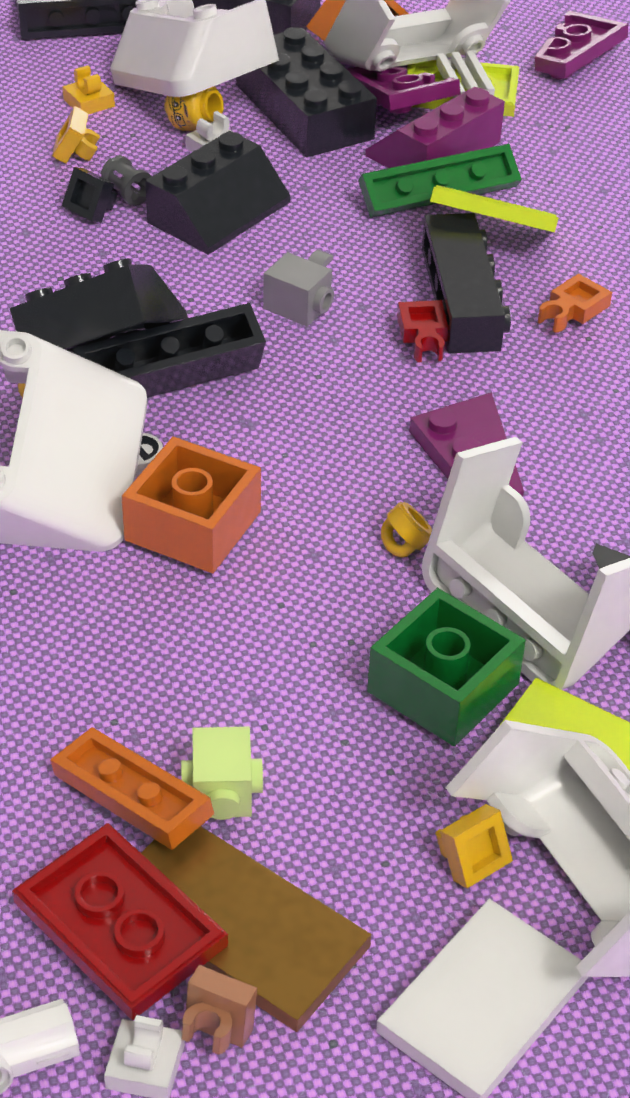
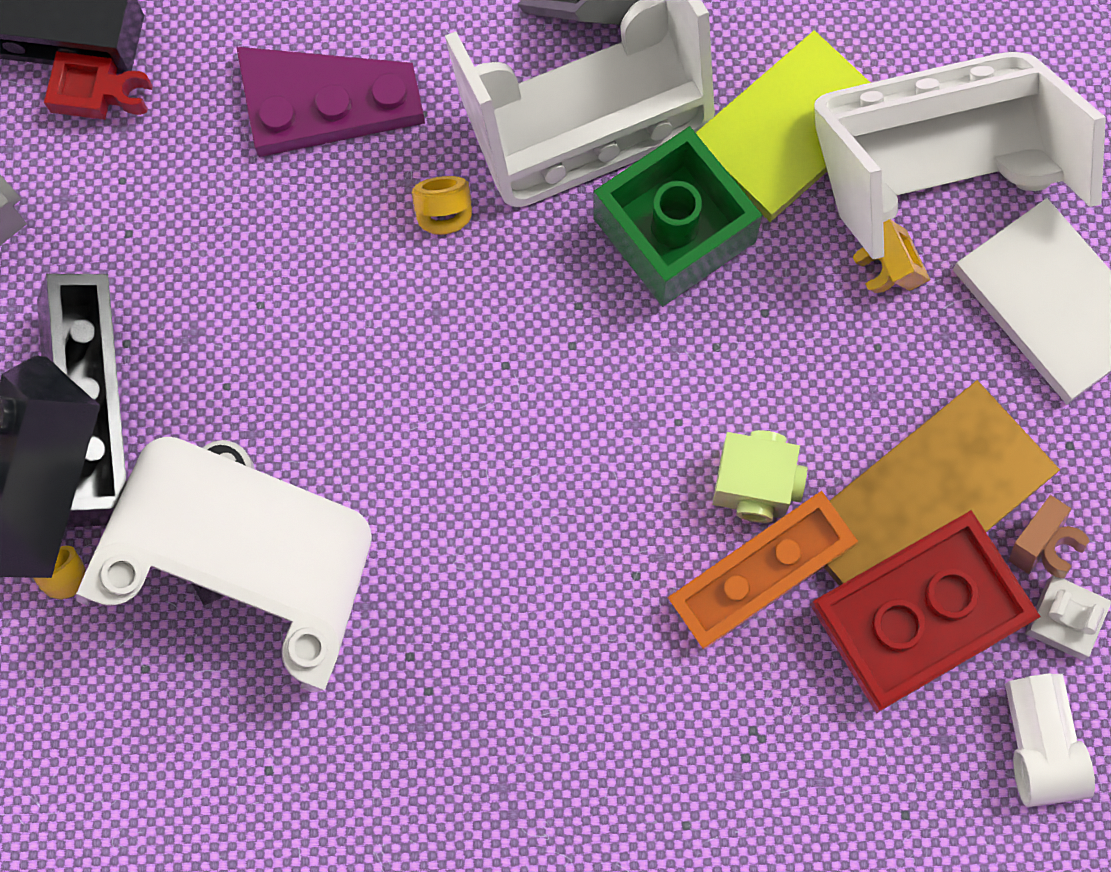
camera: 70 degrees left, 30 degrees up
(192, 504) = (359, 422): orange brick -> none

